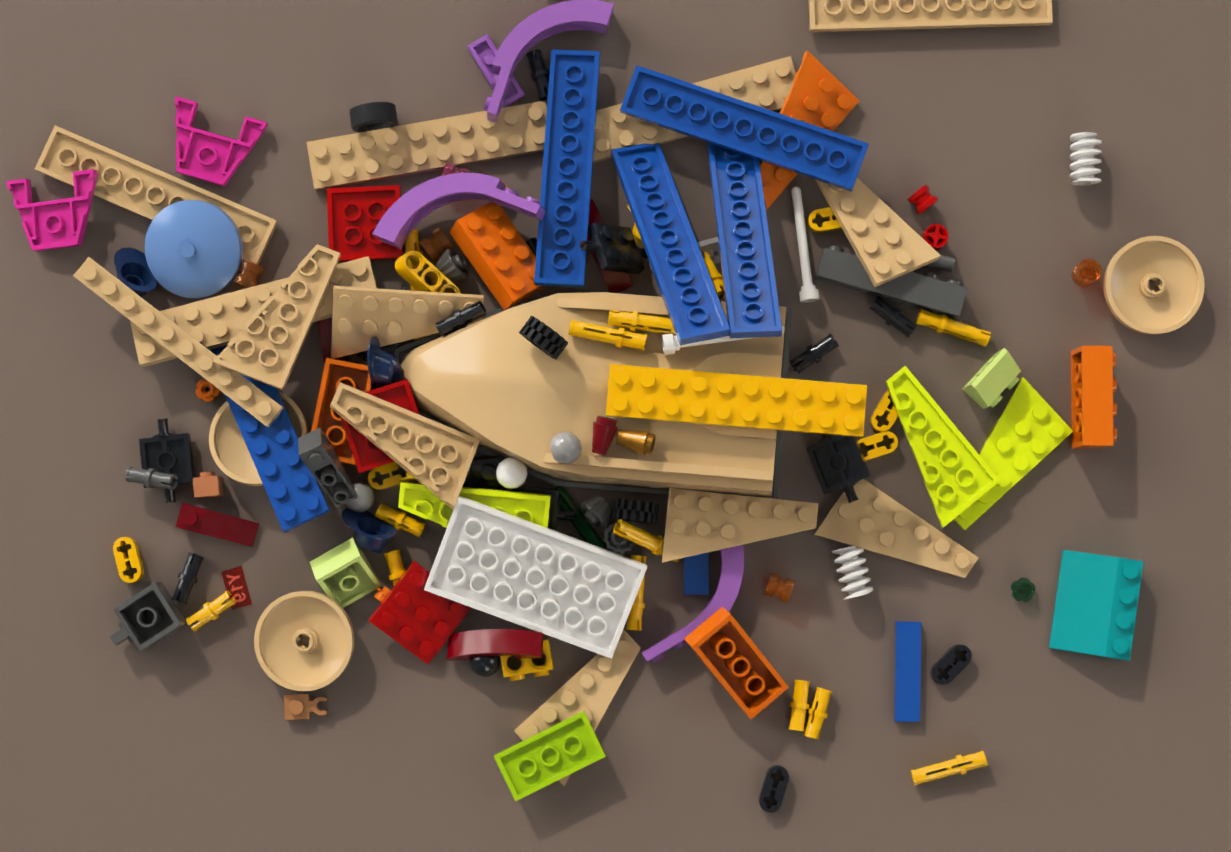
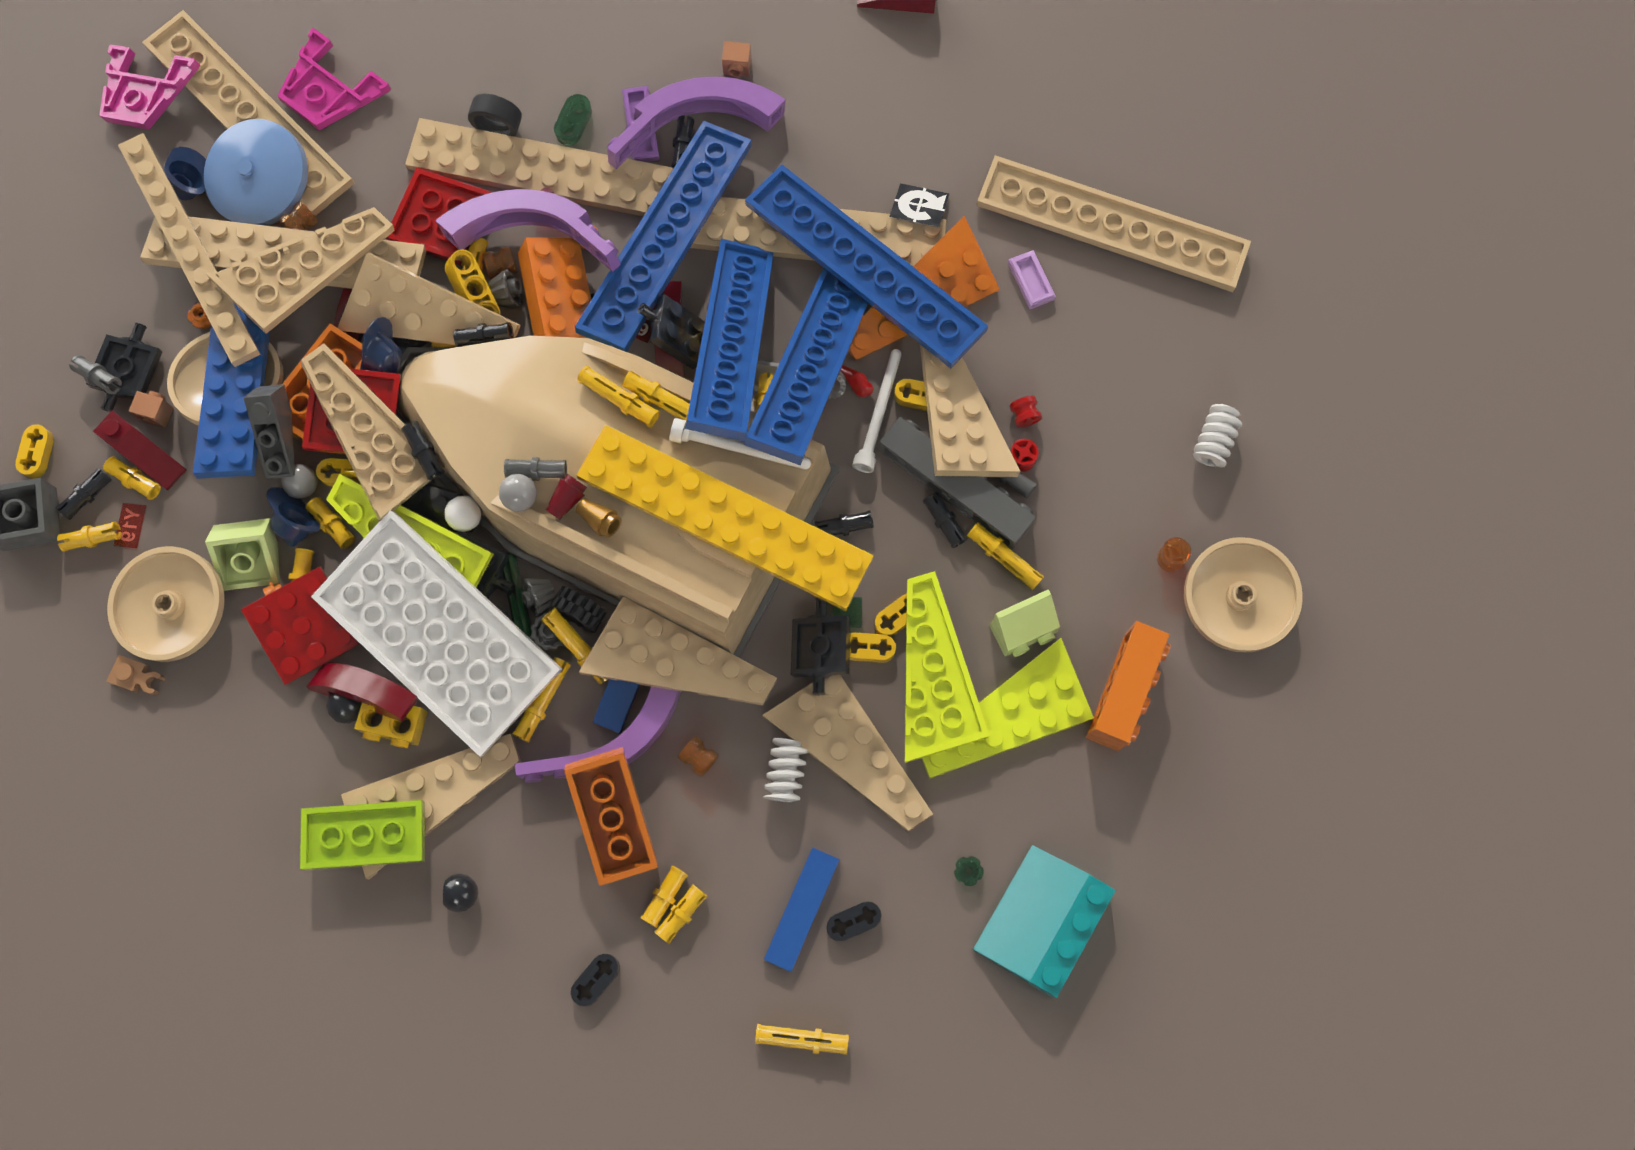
camera: 20 degrees right, 10 degrees down
(220, 549) = (131, 478): none -> yellow pin
(437, 92) = (572, 122): none -> clear green plate
(459, 437) = (422, 450): none -> black pin
(543, 337) = (547, 369): black tyre -> none
(569, 421) = (536, 468): none -> dark grey pin
(642, 767) = (459, 893): none -> black piece
(763, 52) = (919, 205): none -> sticker
(778, 230) = (857, 382): none -> red arm
(881, 80) = (1031, 279): none -> lavender tile

